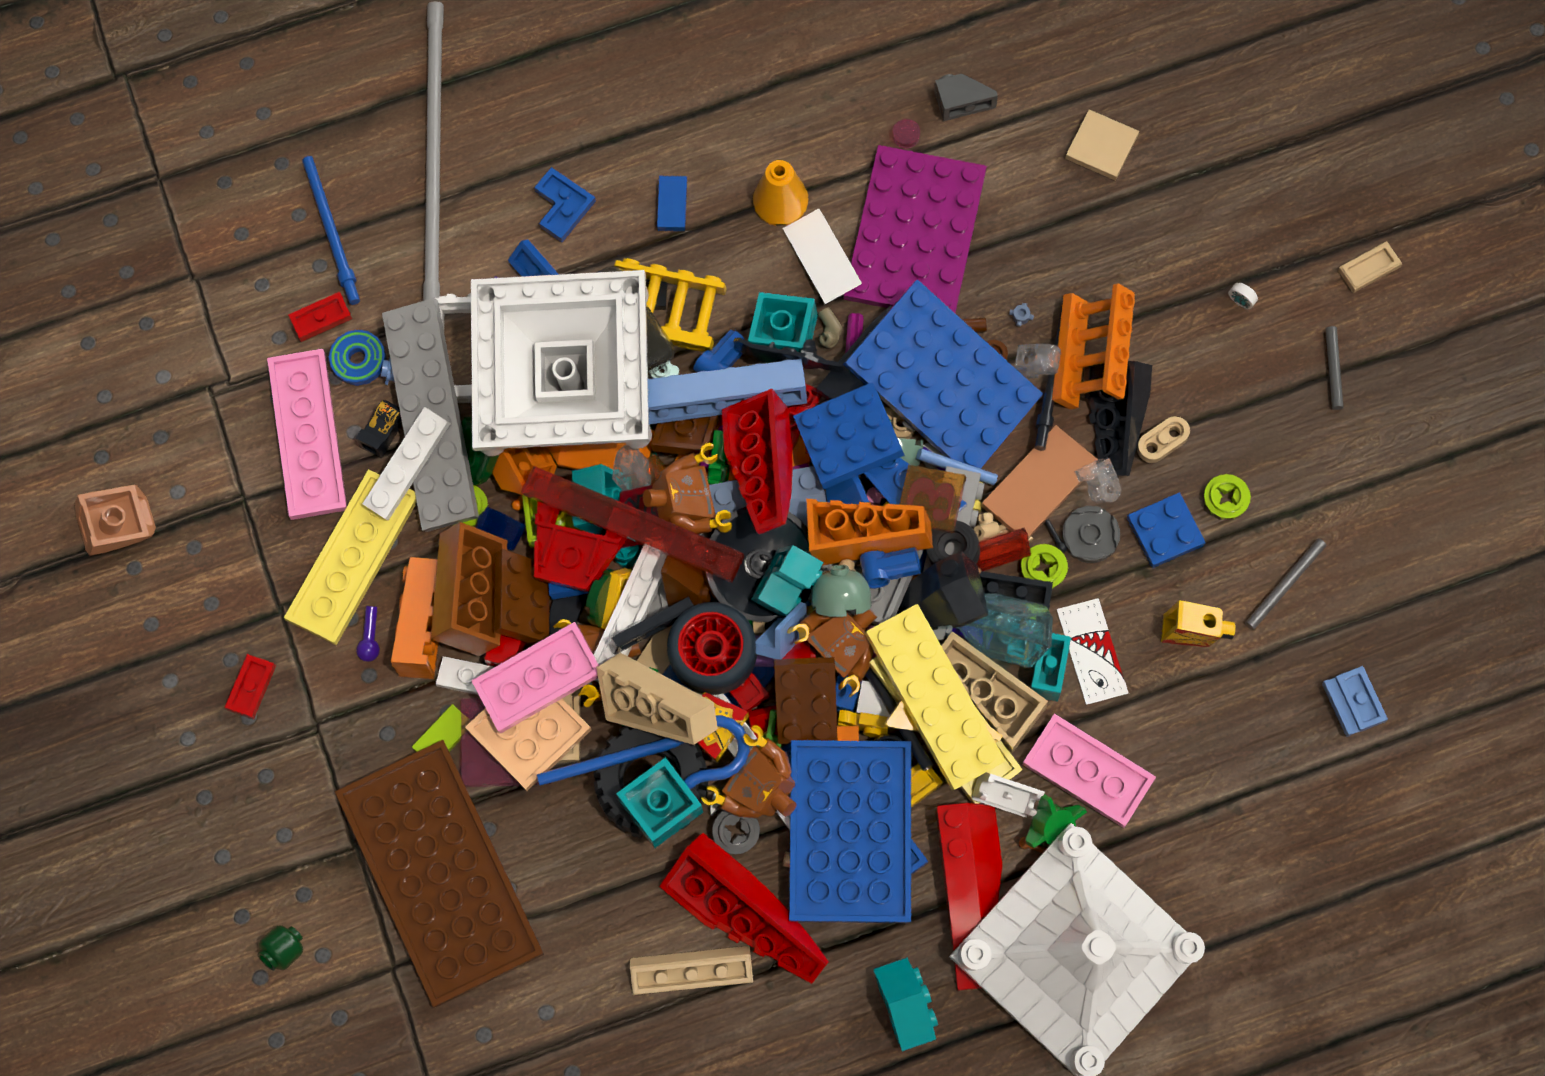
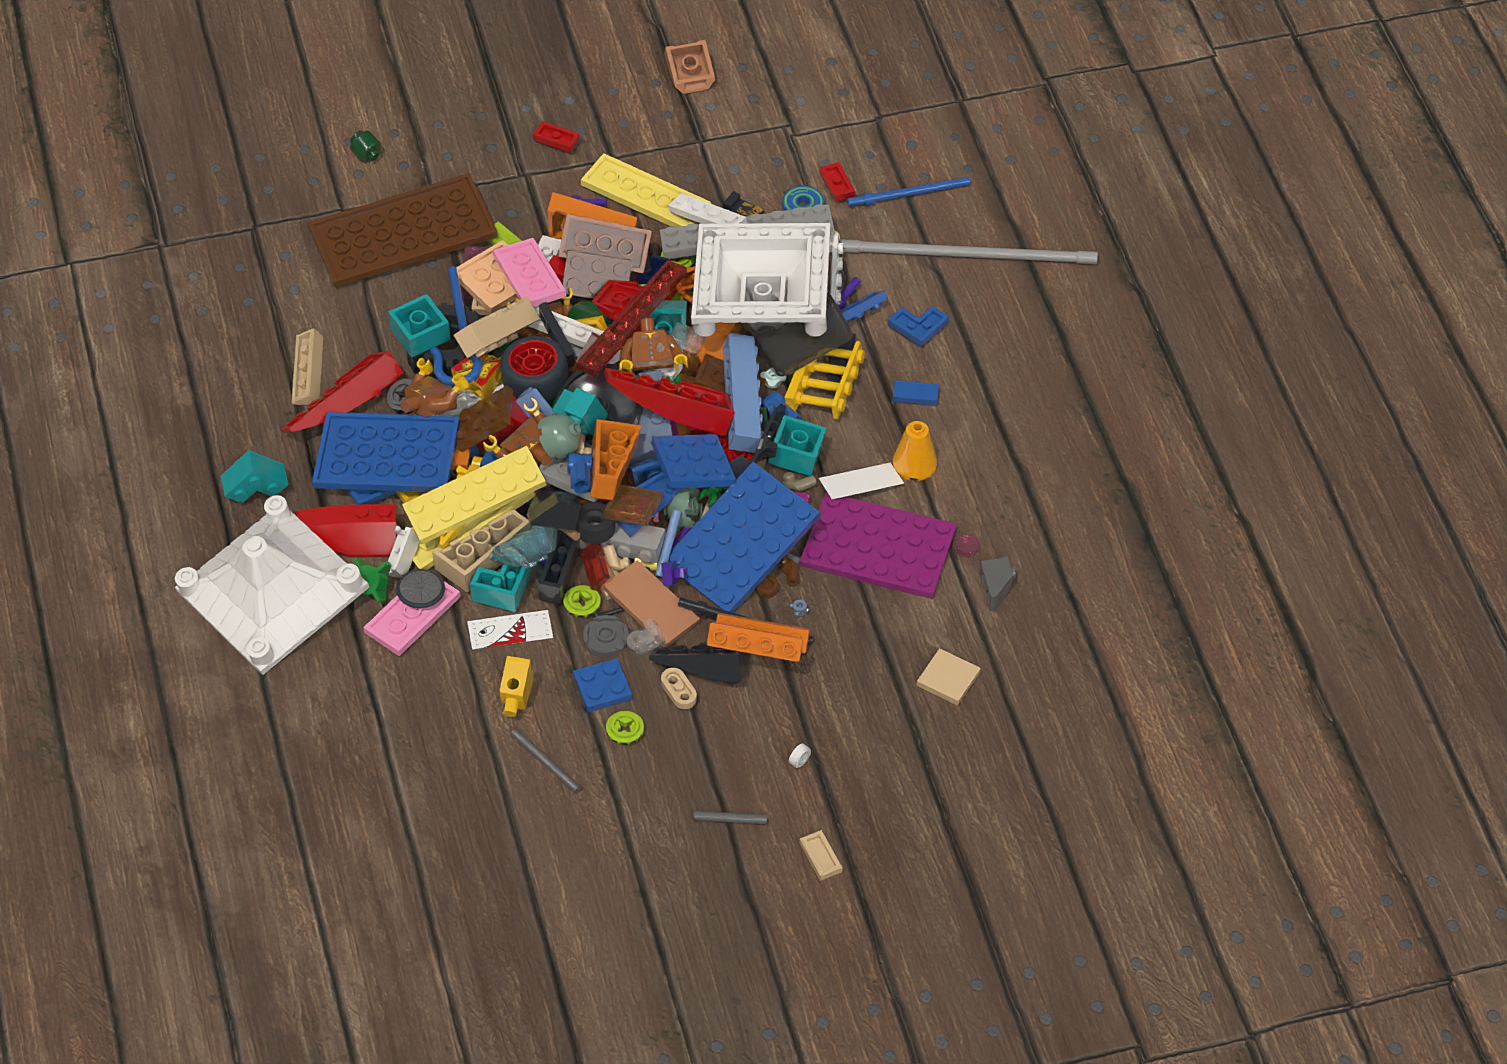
camera: 90 degrees right, 20 degrees down
(307, 434) = (745, 172): bright pink plate -> none
(999, 457) = (672, 573): none -> dark purple tile
(1042, 360) = (752, 606): clear leg -> none
(1057, 762) = (420, 588): none -> dark grey wheel
(1354, 701) = (439, 792): medium blue plate -> none

